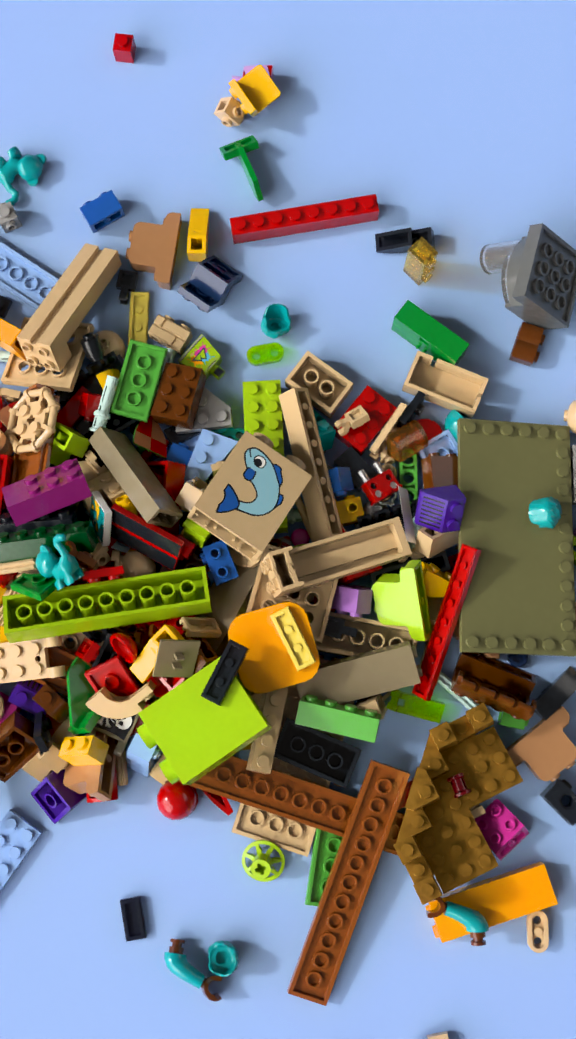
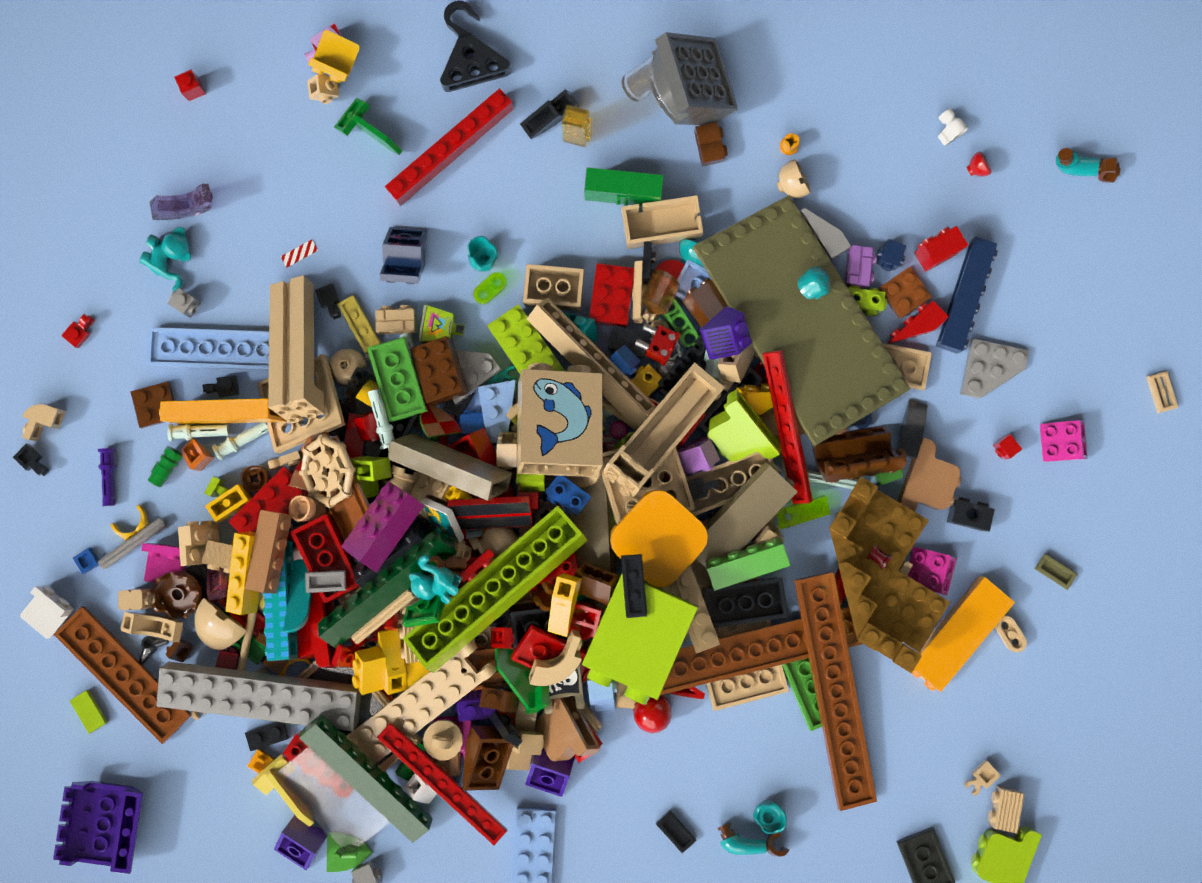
camera: 35 degrees left, 5 degrees up
(56, 139) = (182, 205): none -> clear purple arch
(83, 750) = (551, 722): yellow brick -> none
(92, 347) = (337, 374): black brick -> none
(102, 211) = (265, 246): blue brick -> none
(119, 233) = (299, 253): none -> sticker
(124, 646) = (533, 615): red hat -> none
(155, 248) = (334, 252): medium nougat brick -> none
(176, 658) = (584, 598): dark tan piece -> none
(198, 235) = (364, 216): yellow slope -> none
(200, 627) = (588, 560): tan tile -> none
(262, 862) = (754, 720): lime wheel -> none
(292, 638) = (671, 521): light yellow tile -> none
(353, 418) = (604, 300): tan plate -> none
(371, 144) = (466, 43): none -> black piece
(407, 516) = (699, 356): white sticker -> none
(471, 919) = (953, 658): teal piece -> none

